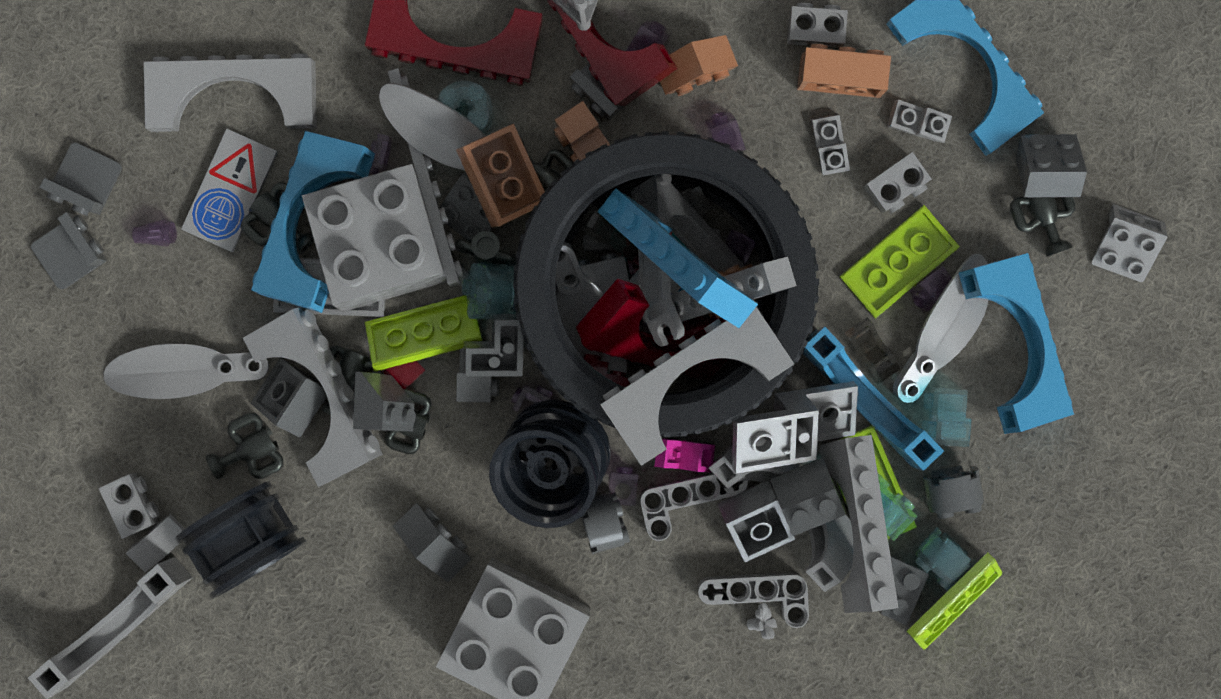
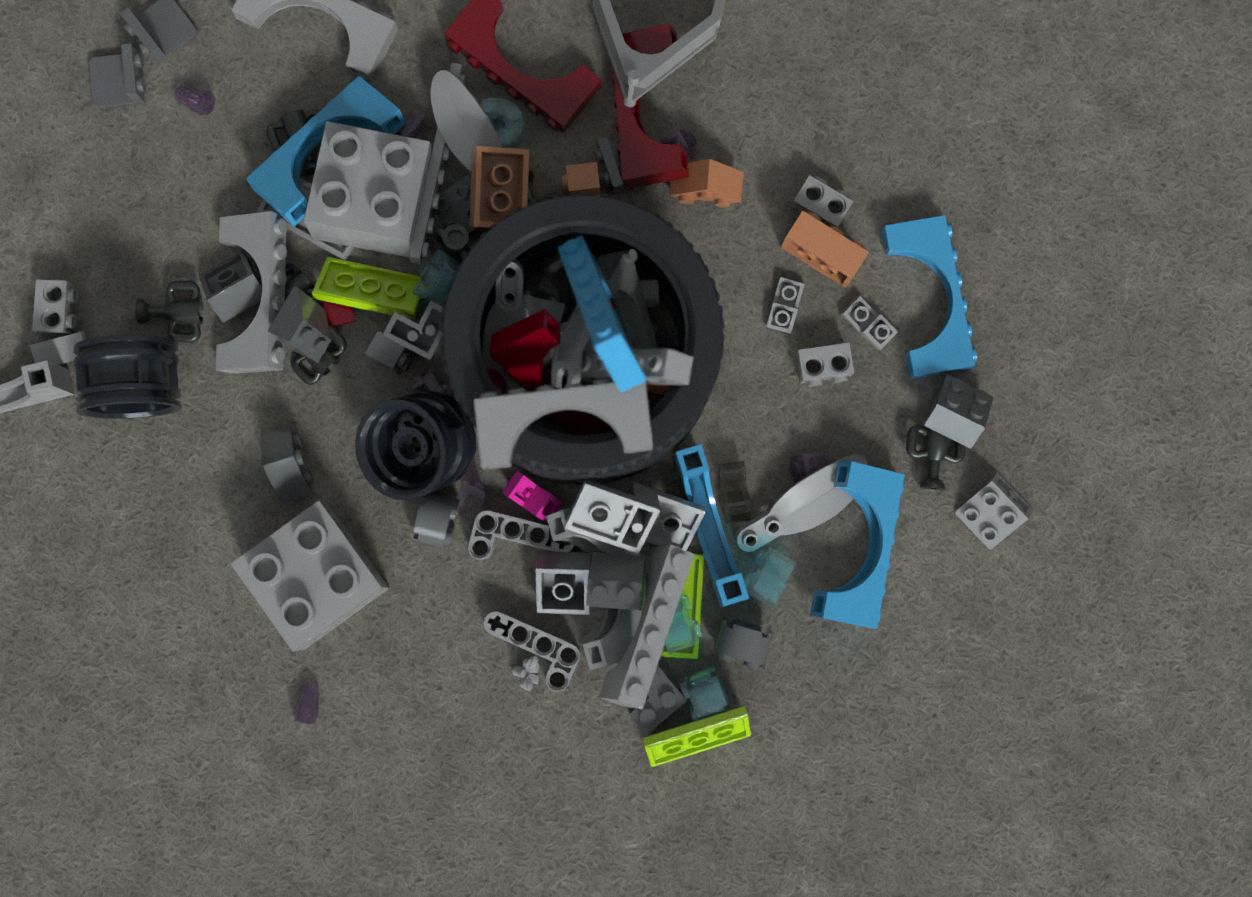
camera: 20 degrees right, 5 degrees down
(177, 371) = (154, 219): light grey plant -> none
(229, 190) = (276, 91): light grey tile -> none
(725, 129) = (706, 246): clear purple bracket -> none
(899, 261) = (794, 429): lime tile -> none

